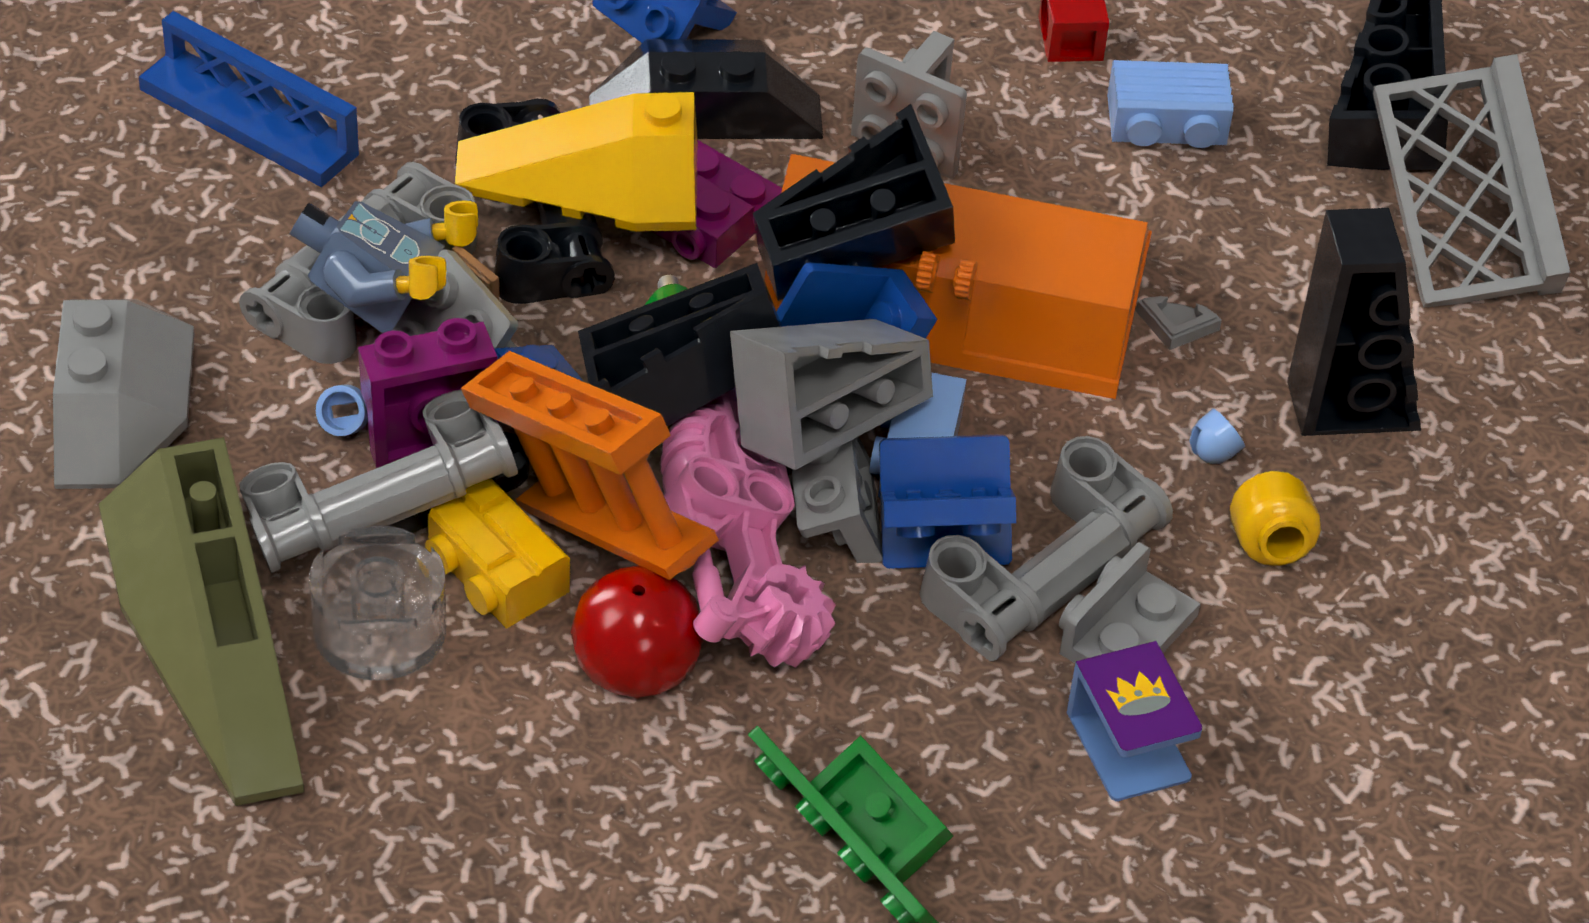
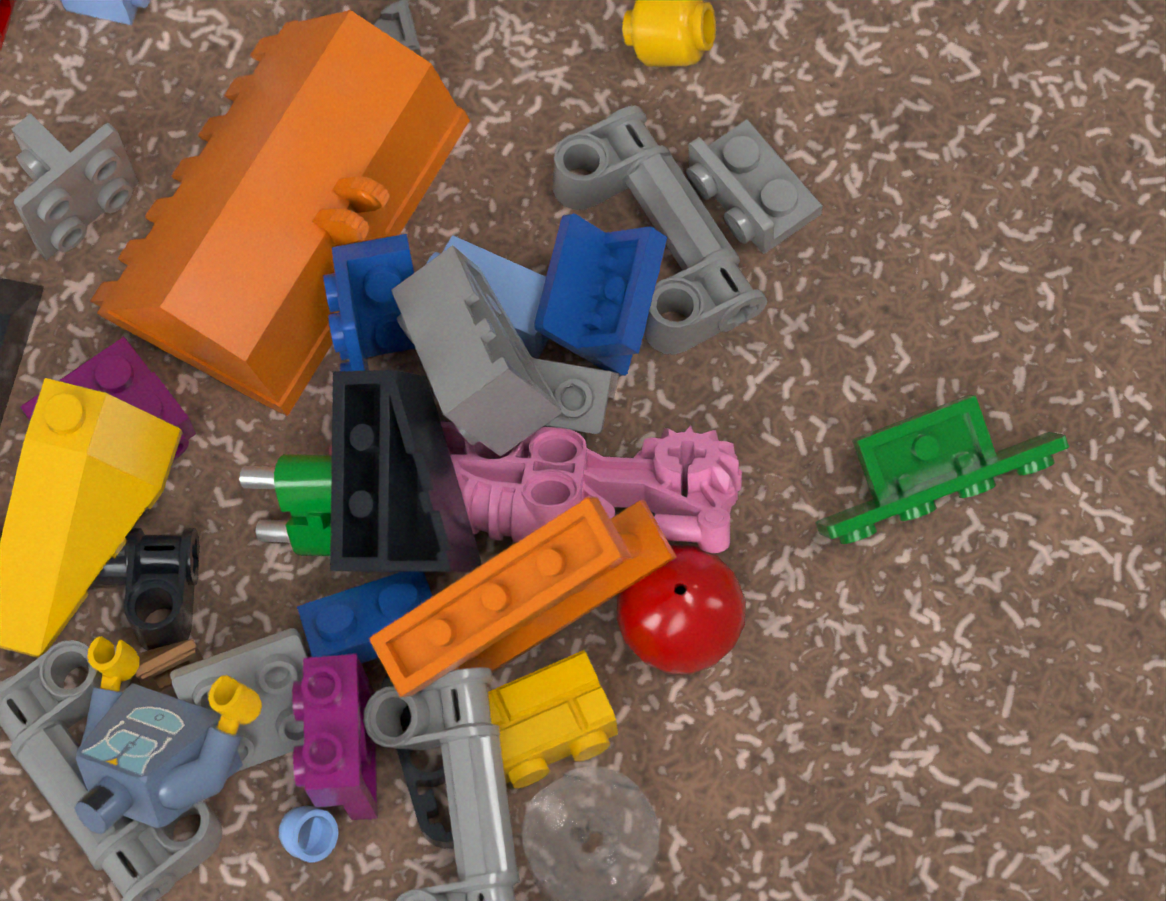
camera: 65 degrees left, 20 degrees up
(860, 211) = (276, 259): black wedge -> none
(1131, 719) = (882, 209): piece -> none
(1214, 438) = (552, 45): light blue hinge -> none

